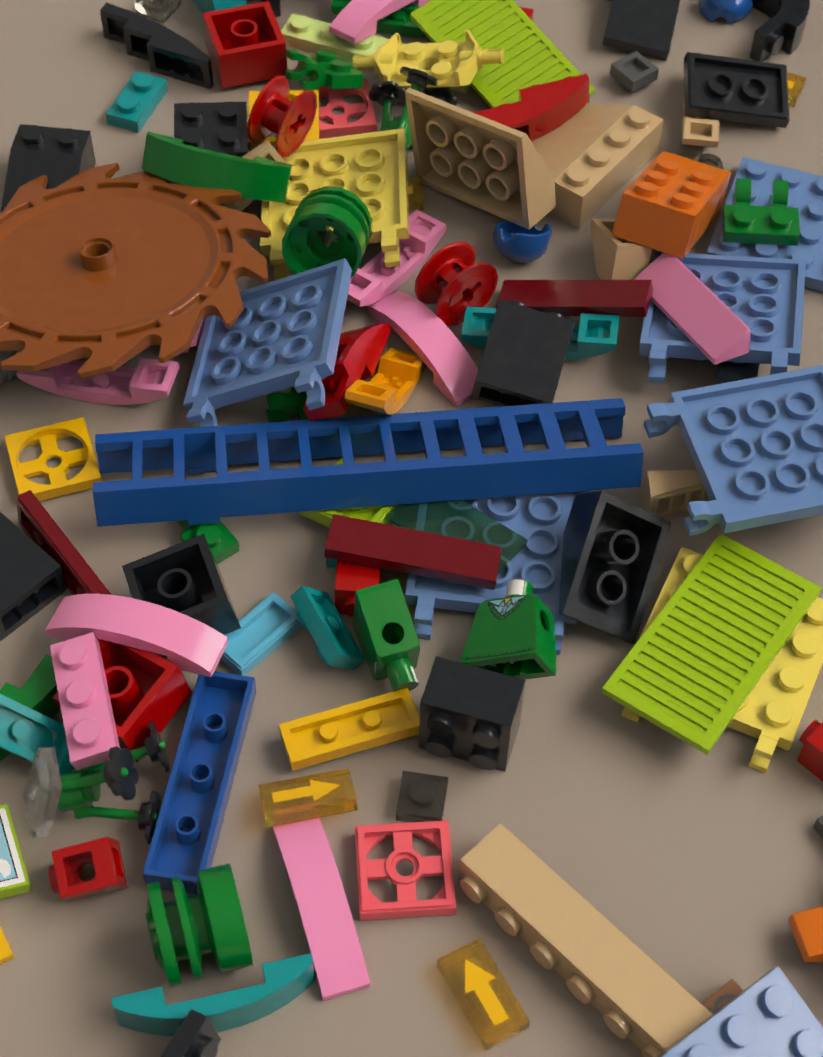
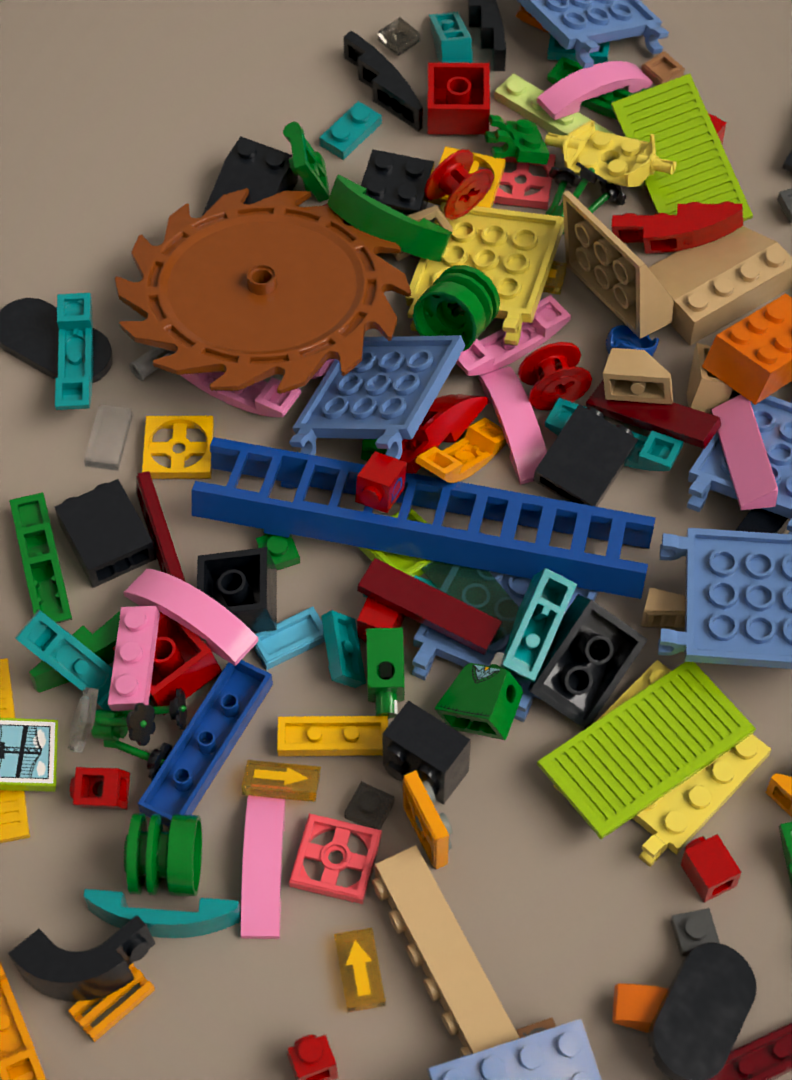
camera: 20 degrees right, 5 degrees up
(101, 134) = (307, 162): none -> green plate
(312, 429) = (380, 482): none -> red brick
(500, 789) = (429, 826): none -> light orange piece
(544, 534) = (537, 623): none -> teal slope
(547, 263) = (636, 378): none -> tan slope

